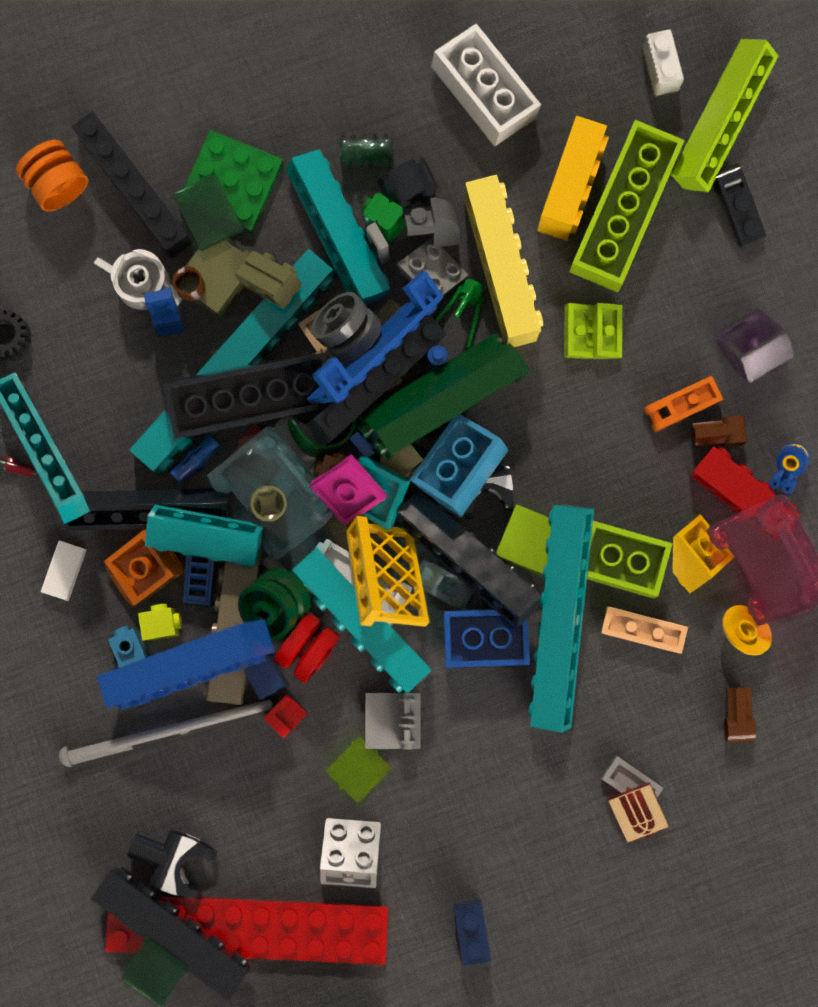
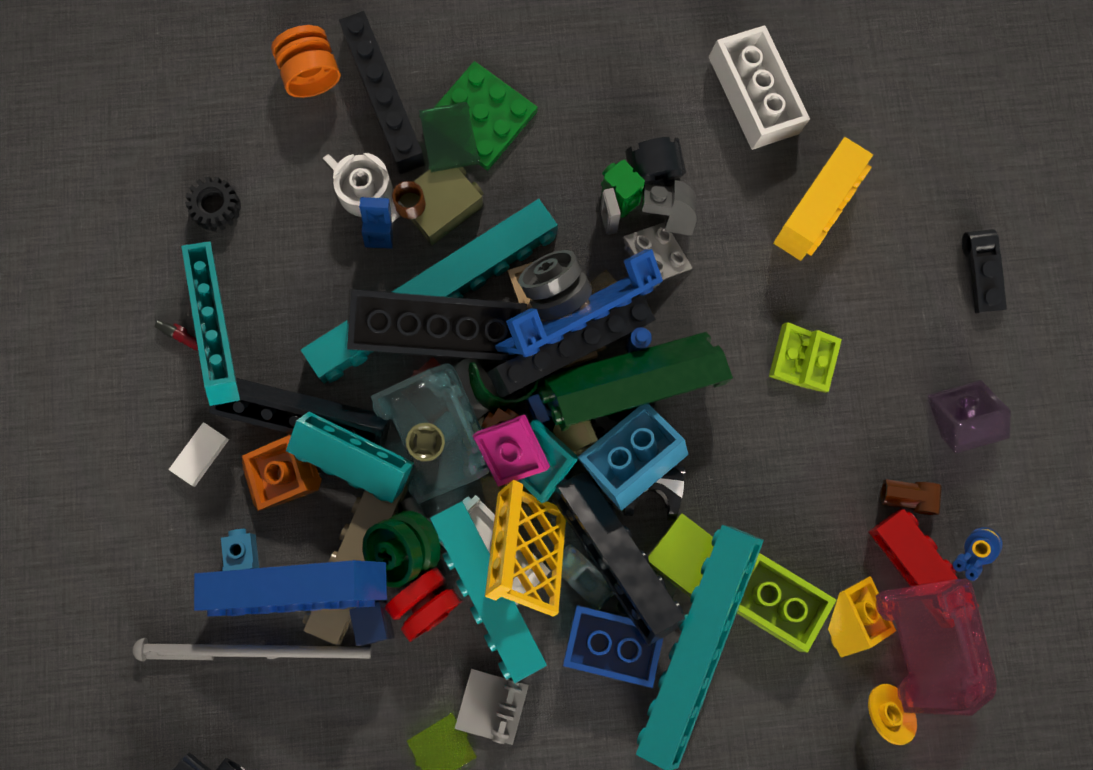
camera: 10 degrees right, 5 degrees down
(159, 623) = (279, 535): neon yellow brick -> none
(195, 459) = (365, 377): blue pin -> none
(209, 578) = (329, 484): blue slope -> none
(268, 278) = (491, 216): olive brick -> none
(285, 716) = (380, 670): red panel -> none
(337, 227) = (573, 185): teal brick -> none
(366, 150) = (622, 119): clear green piece -> none
(469, 295) = (687, 288): green plant -> none
(502, 261) = (731, 262): light yellow brick -> none
(626, 206) = (871, 242): lime brick -> none
(644, 630) = (782, 683): light nougat plate -> none
(662, 62) = (941, 111): white brick -> none
(684, 403) = (881, 456): orange plate -> none
(724, 115) = (992, 178): lime brick -> none

